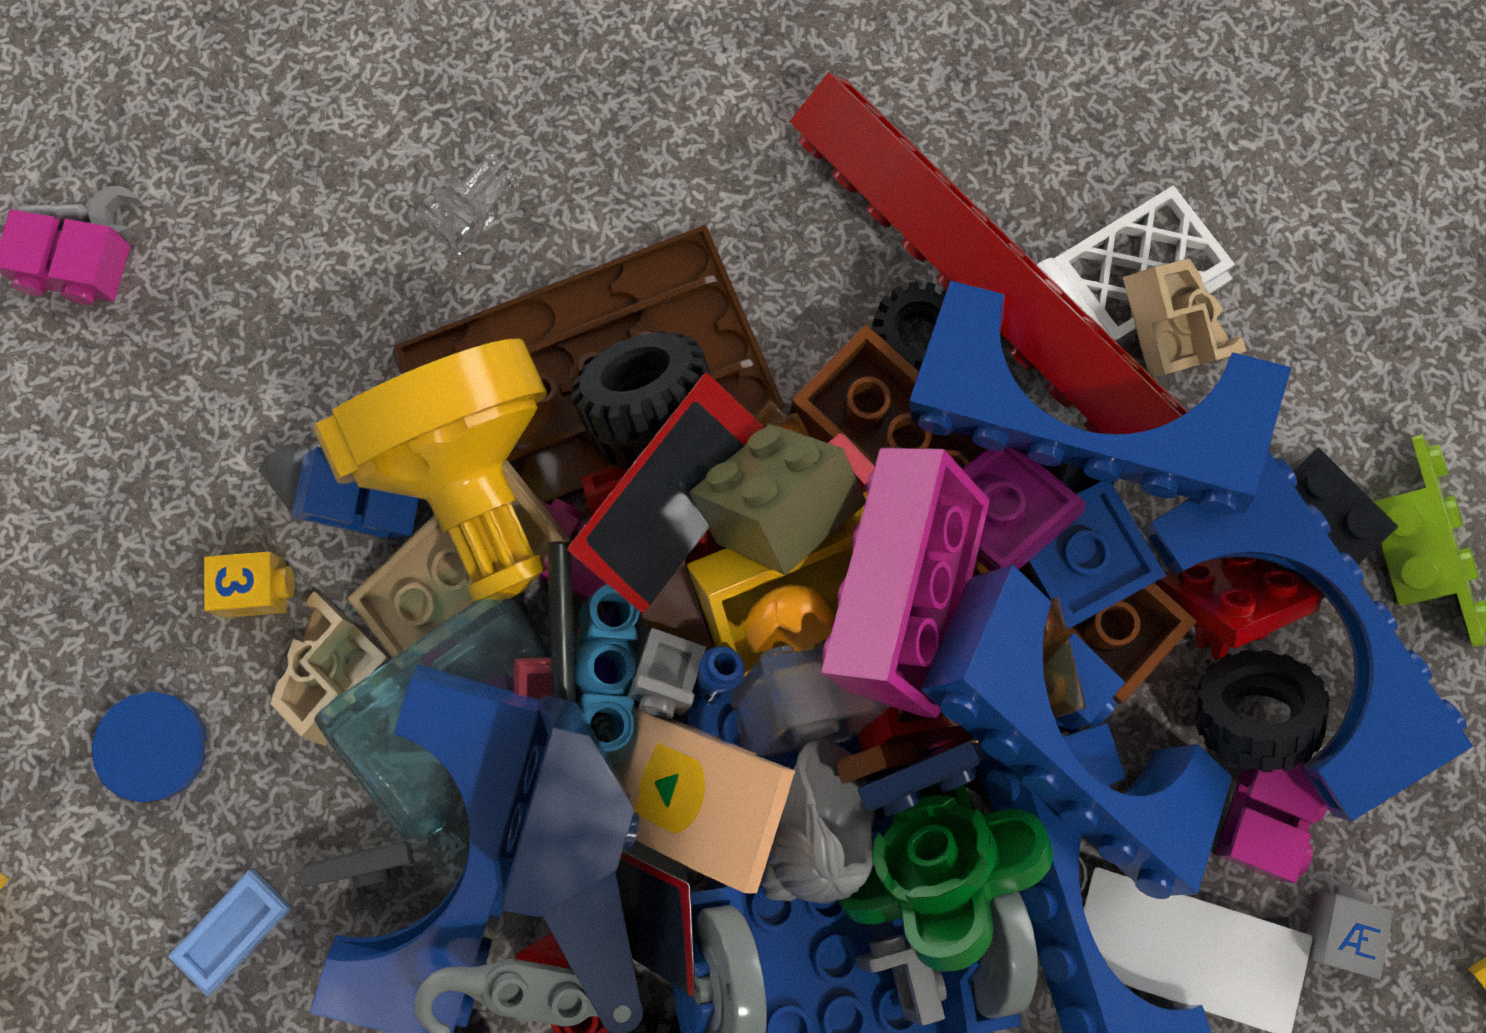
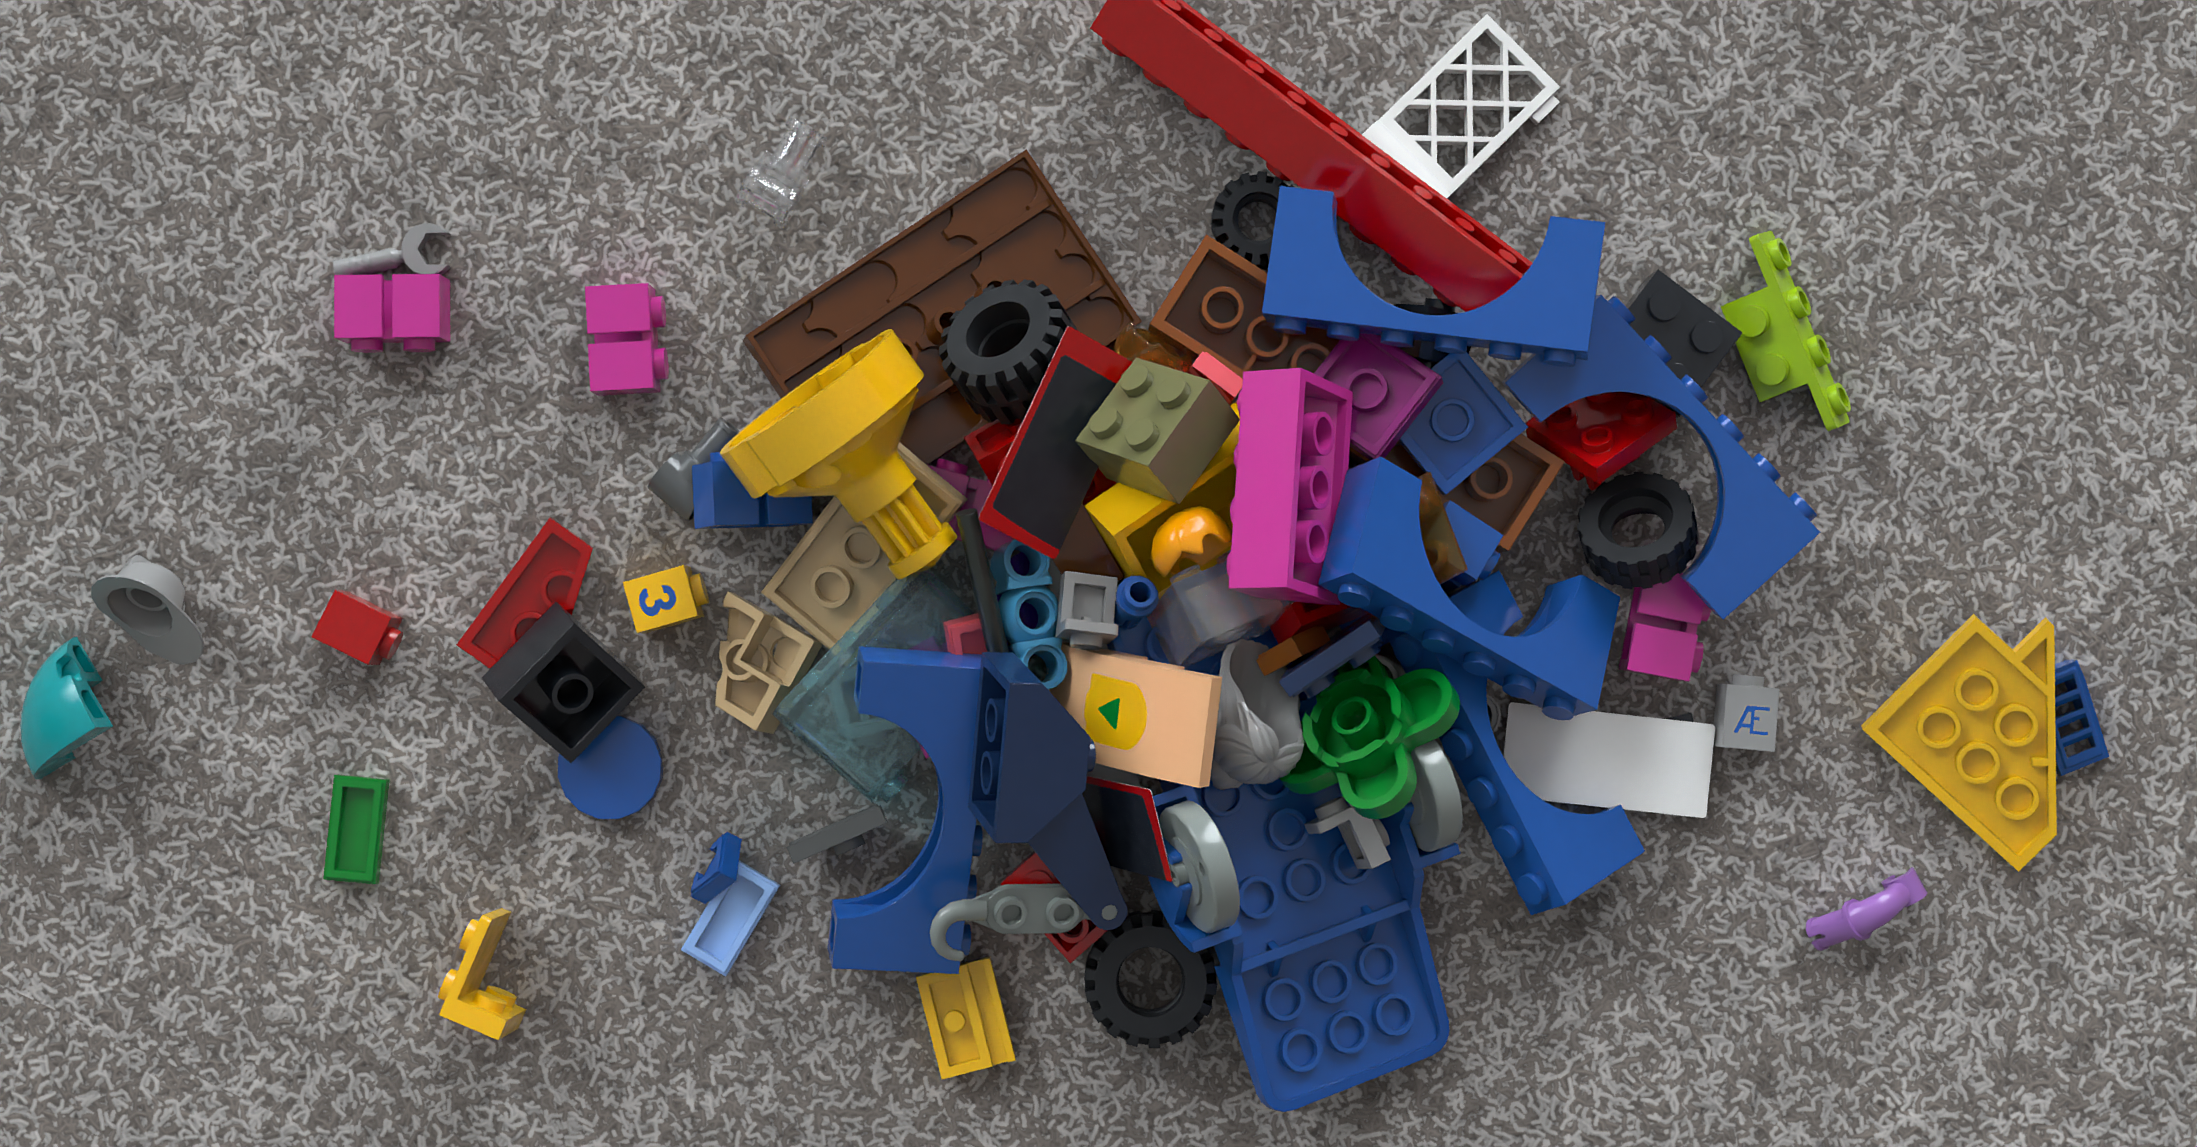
camera: 15 degrees left, 10 degrees up
(112, 572) = (544, 574): none -> red wing
(112, 647) = (562, 682): none -> black brick
(232, 878) = (721, 870): none -> blue tile
(279, 336) = (625, 338): none -> dark pink piece
(1177, 319) = (1510, 161): tan slope -> none

